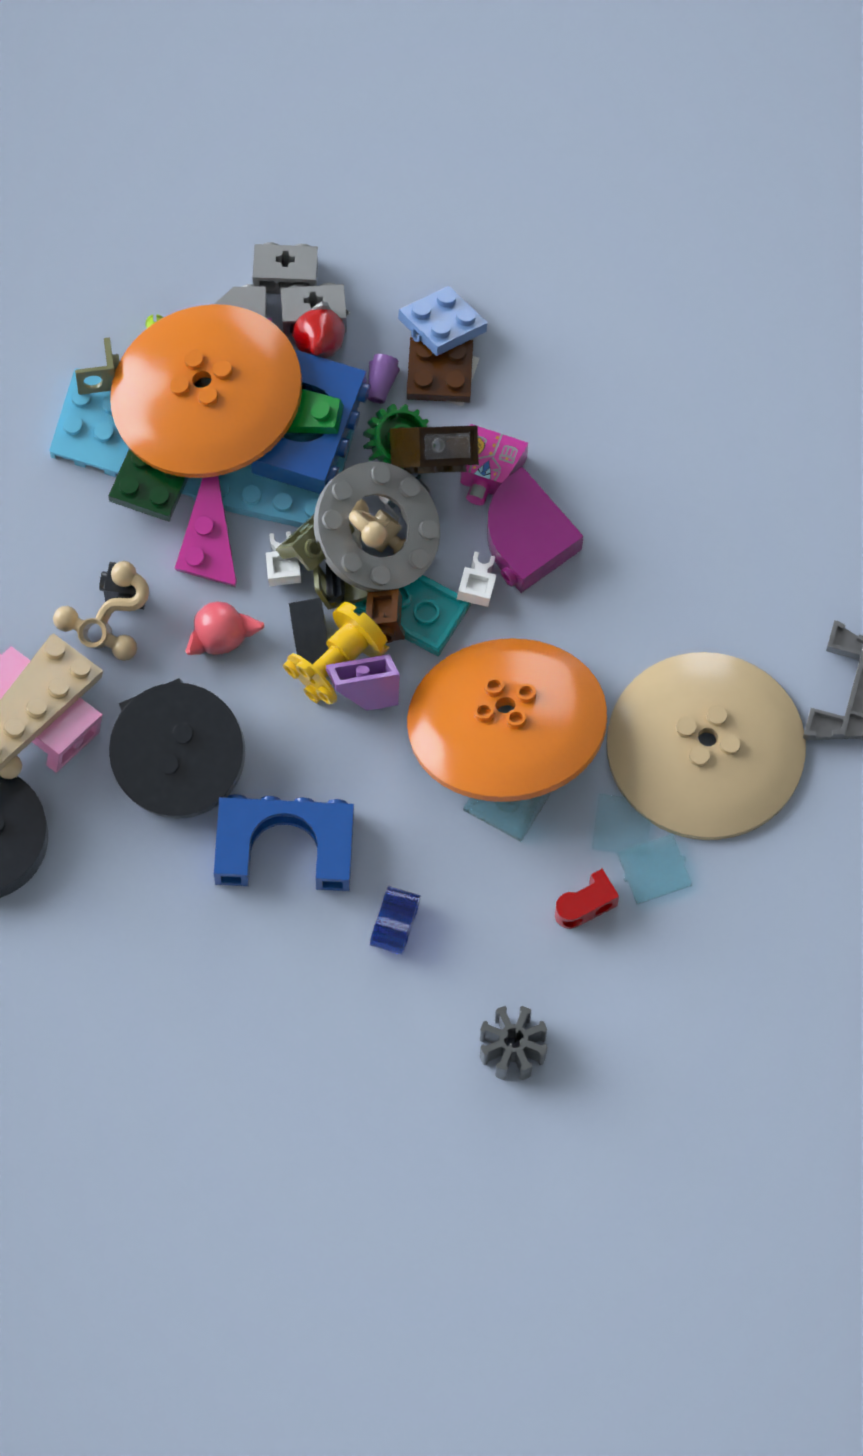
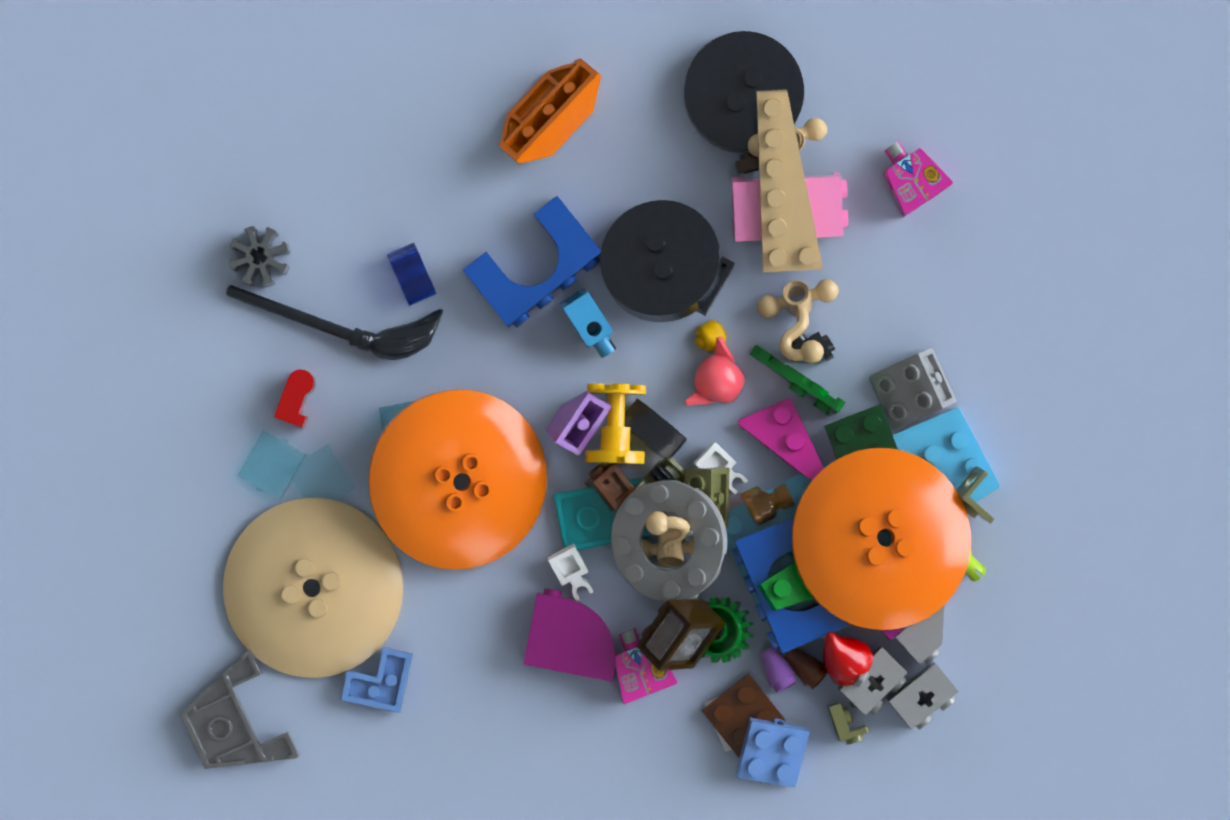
camera: 140 degrees right, 20 degrees up
(33, 771) = (746, 164): none -> dark brown plate
(71, 492) = (913, 388): none -> light grey bracket
(155, 951) = (550, 112): none -> orange wedge
(156, 567) = (799, 383): none -> green wing
(193, 669) = (707, 335): none -> yellow piece
(276, 497) = (764, 505): none -> clear orange piece
(282, 750) = (581, 311): none -> dark azure torso
(356, 354) = (807, 668): none -> reddish brown cone
(367, 297) = (841, 719): none -> olive bracket
(468, 881) = (387, 344): none -> black piece
(716, 616) = (385, 689): none -> medium blue plate

